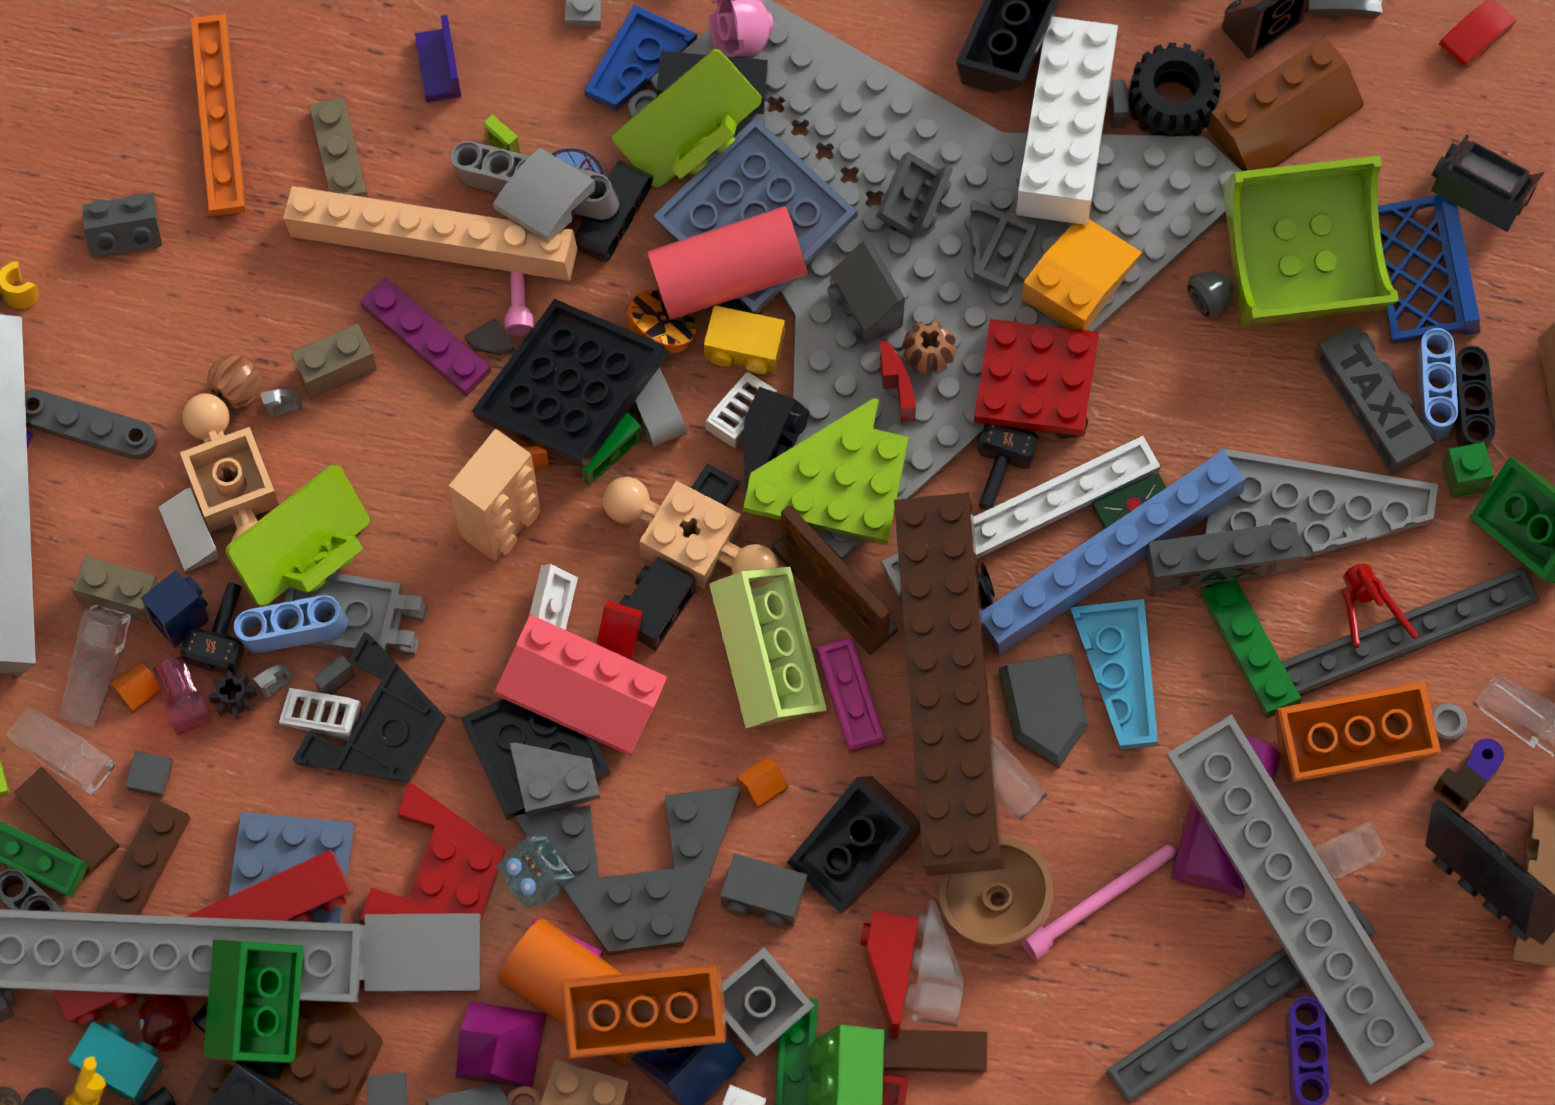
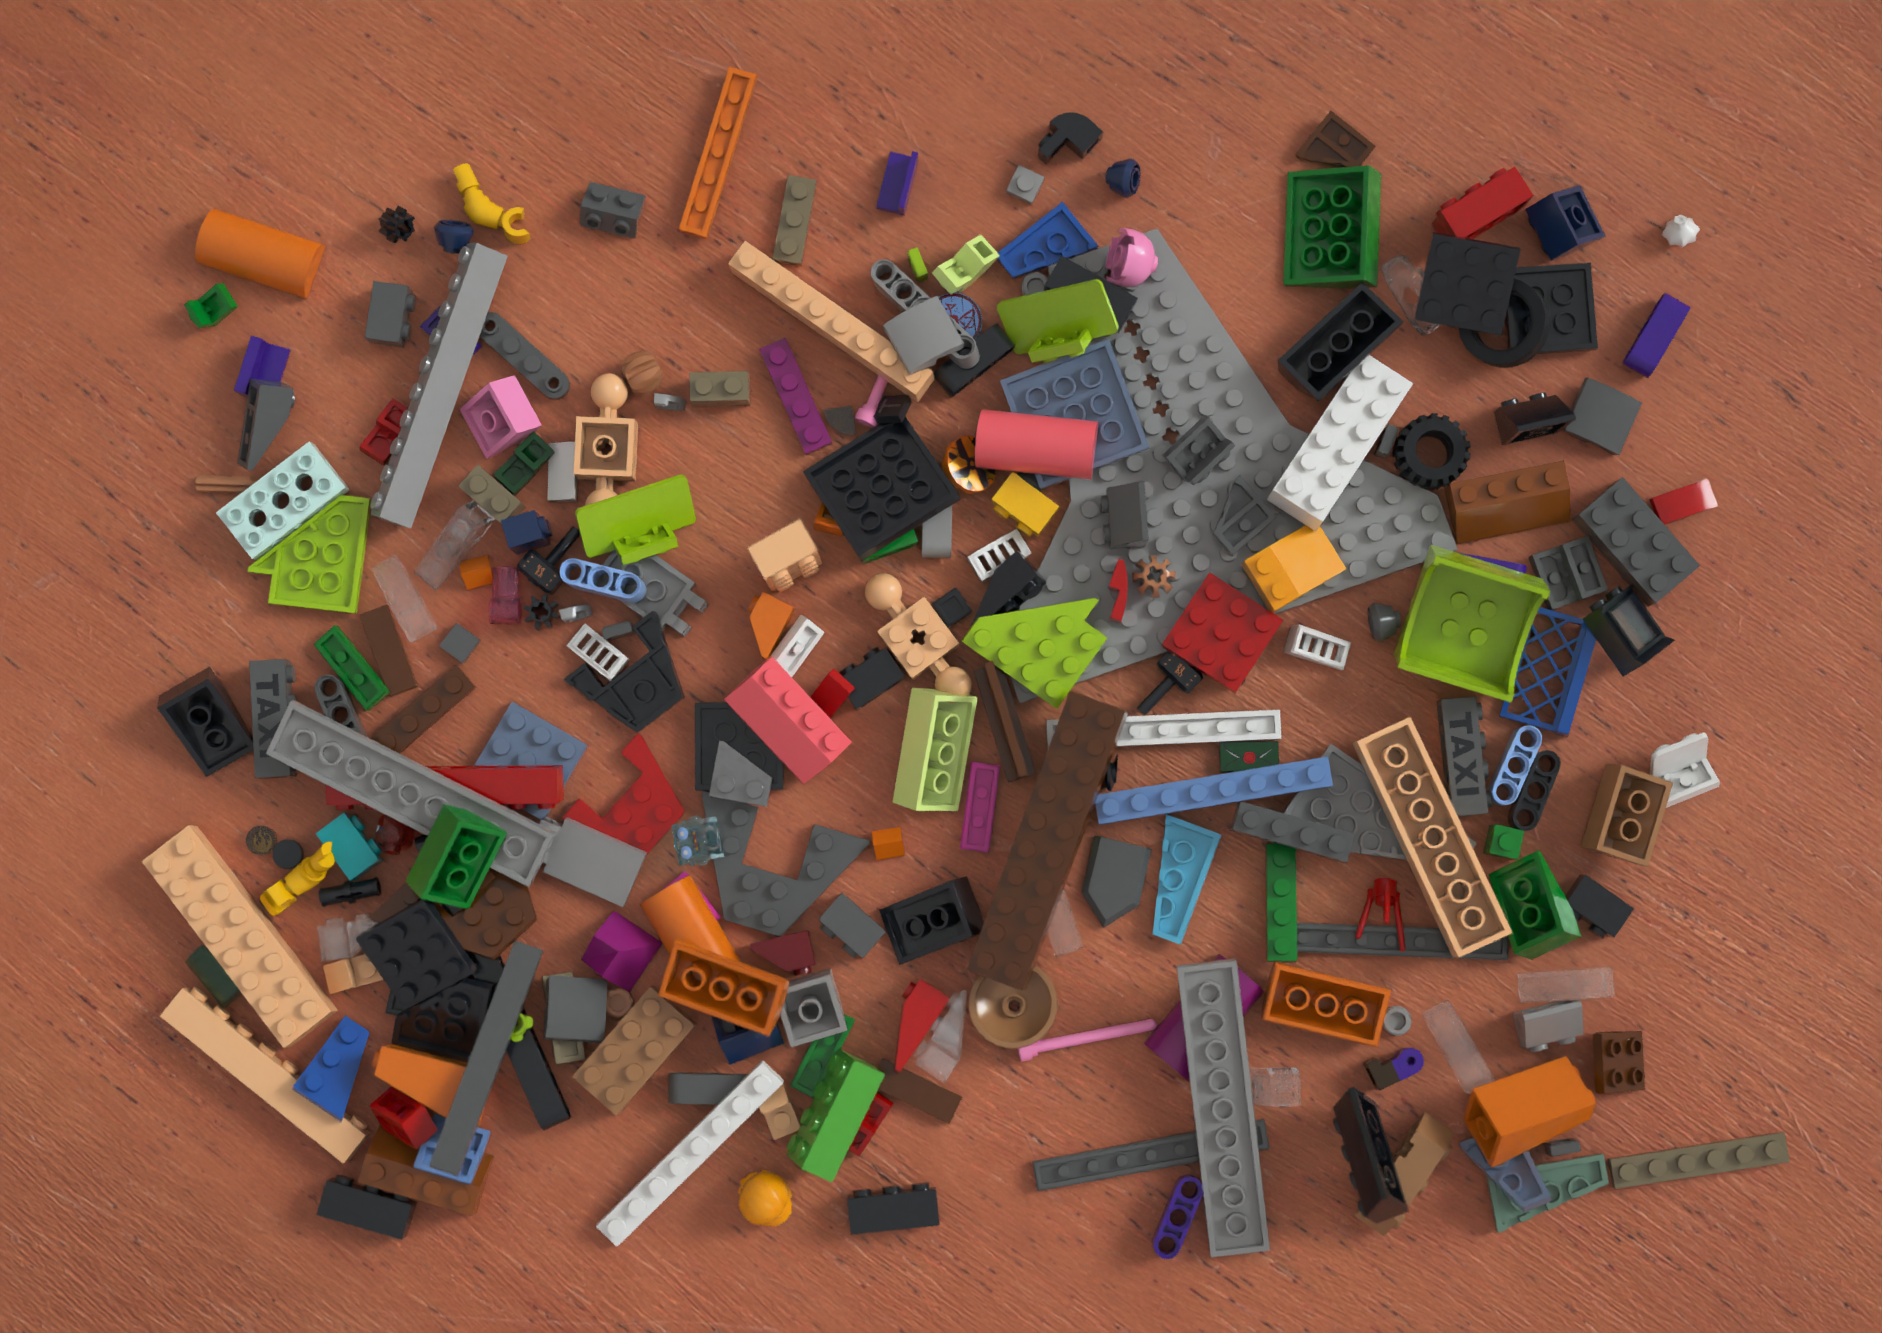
camera: 25 degrees right, 15 degrees up
(87, 498) = (500, 416): none -> bright pink slope
(141, 536) = (524, 463): none -> dark green slope
(507, 589) = (769, 621): none -> orange slope
(544, 299) = (892, 409): none -> black tile
(558, 112) = (966, 265): none -> yellowish green brick
(703, 945) = (788, 952): none -> dark red slope
(1136, 366) = (1293, 642): none -> white slope
(1385, 492) = (1432, 838): none -> light nougat brick
(1403, 152) = (1569, 572): none -> dark grey slope
(1446, 90) = (1635, 542): none -> dark grey brick

